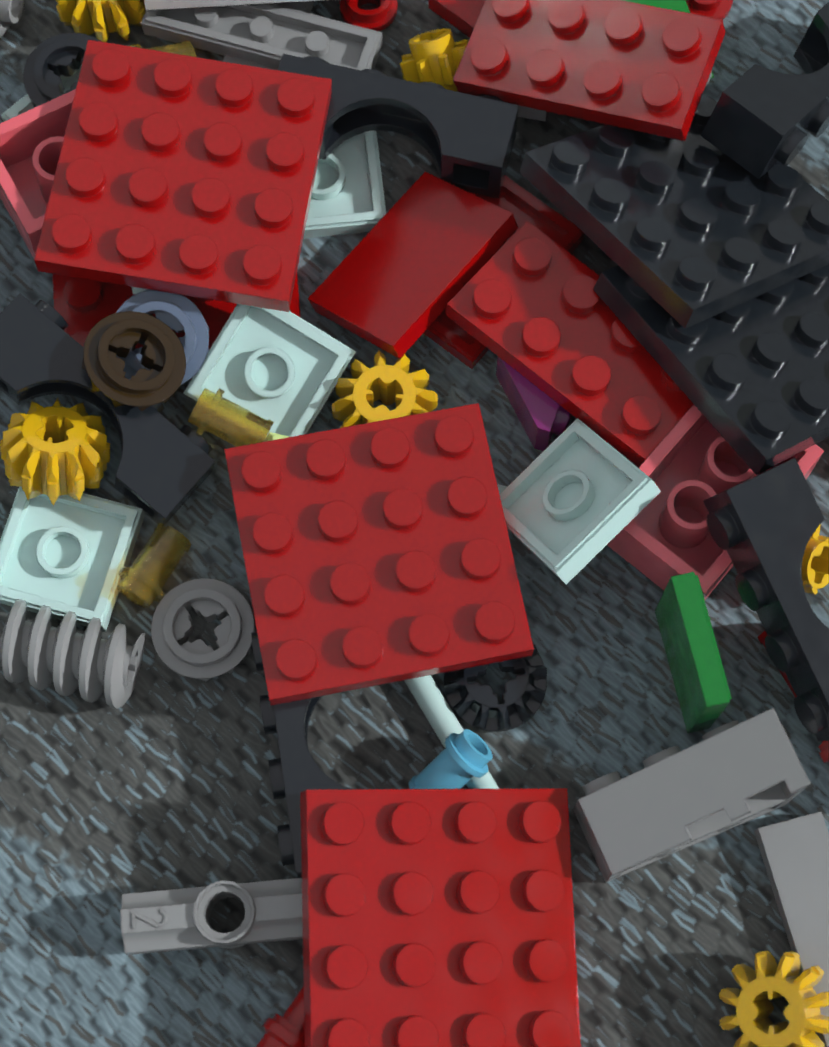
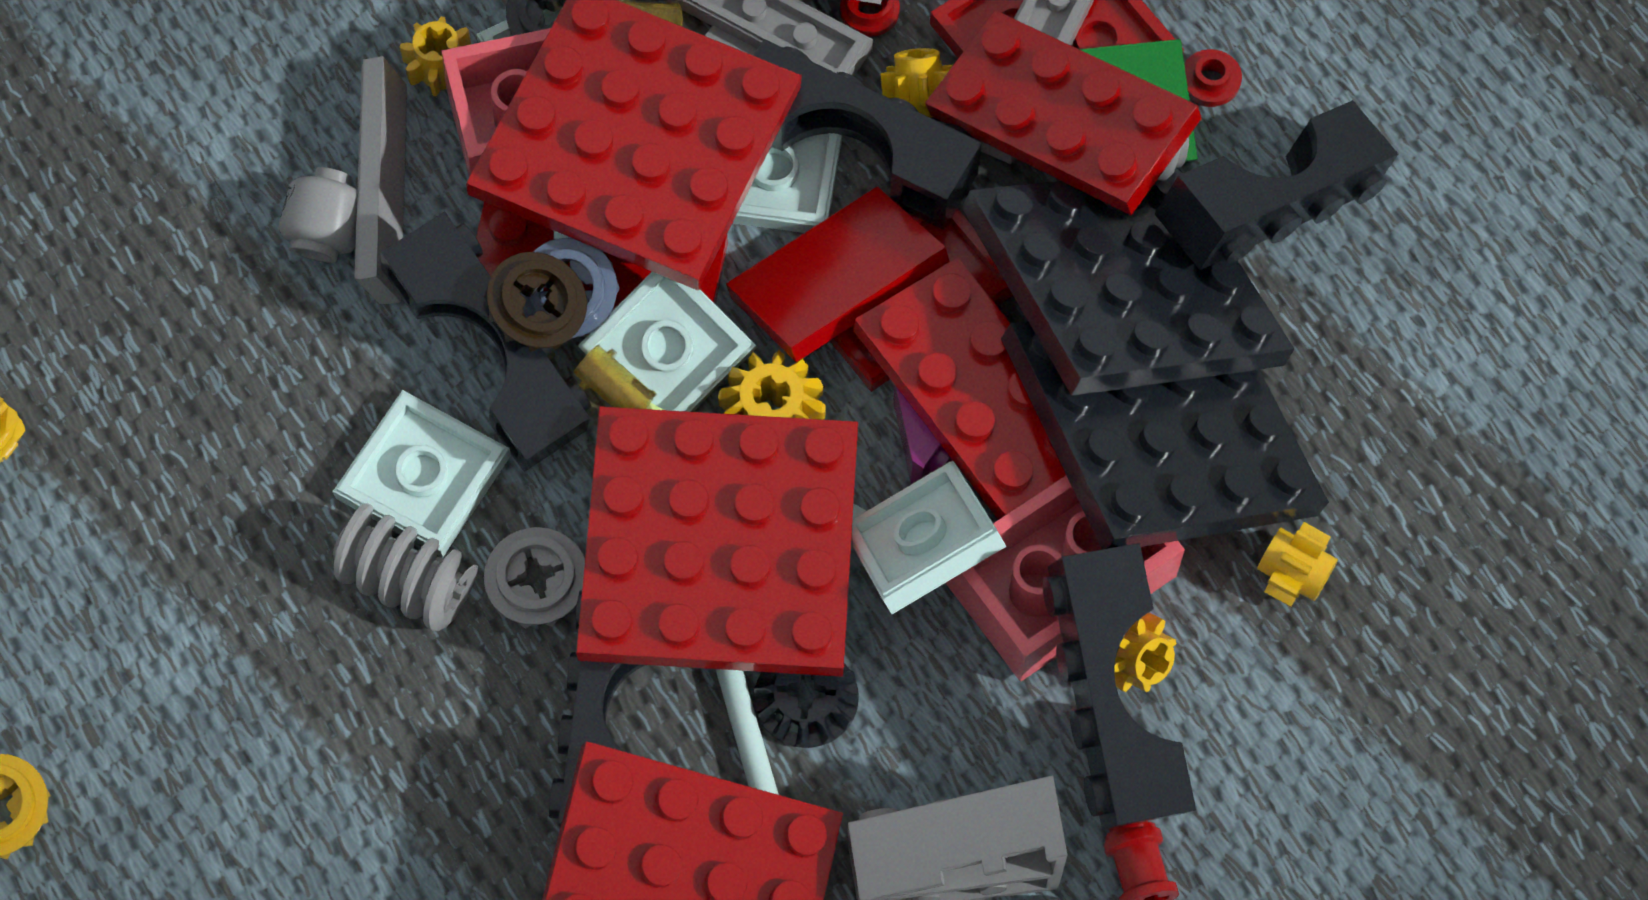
camera: 15 degrees right, 5 degrees down
(55, 451) = (439, 371): yellow gear -> none
(153, 566) = (504, 505): clear yellow pin -> none
(182, 916) = (441, 839): light grey piece -> none
(460, 761) = (748, 760): medium azure pin -> none
(692, 652) = (999, 709): green tile -> none

